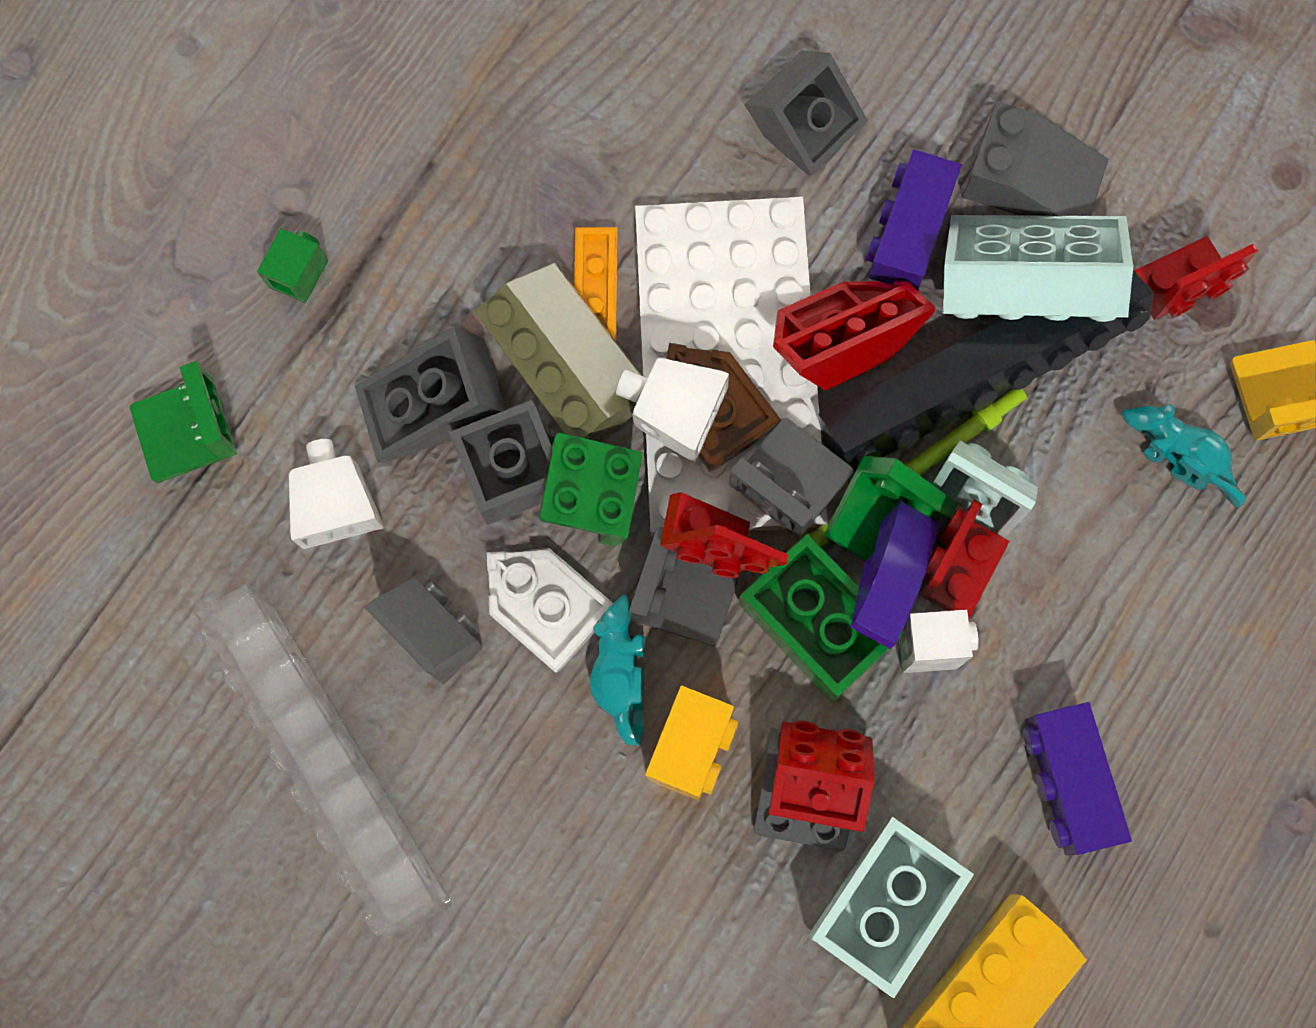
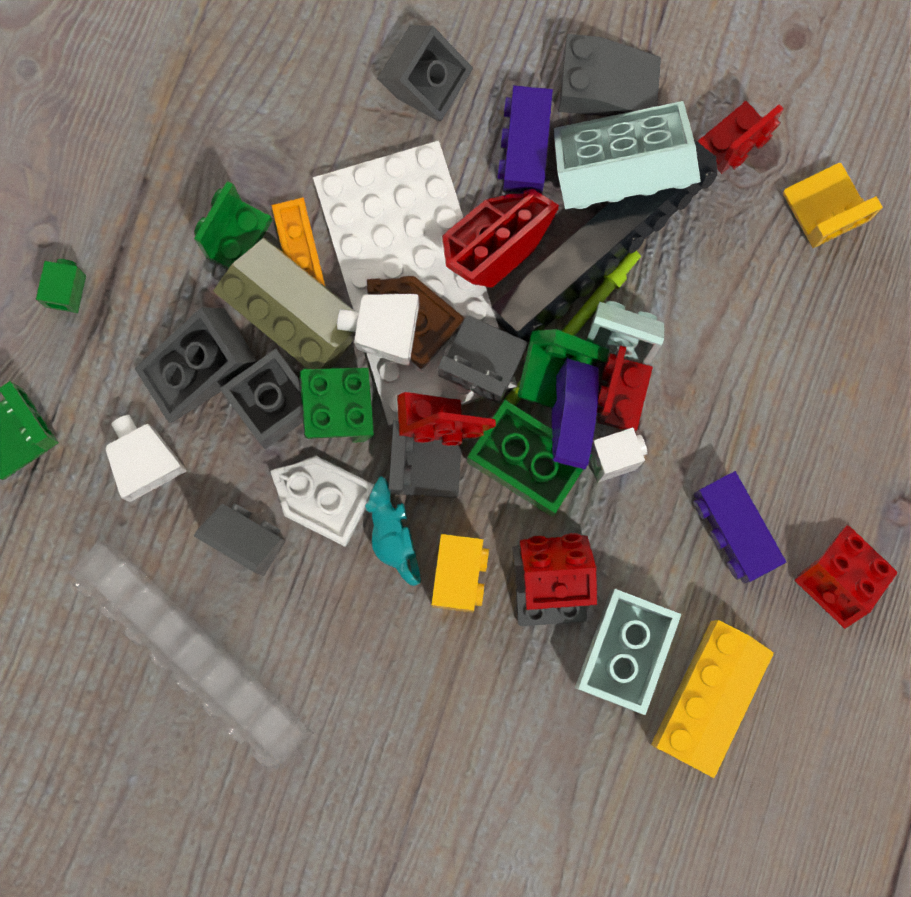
camera: 20 degrees left, 5 degrees up
(515, 239) = (230, 227): none -> green bracket
(1195, 452) = (772, 267): teal animal -> none
(1209, 885) = (847, 578): none -> red bracket

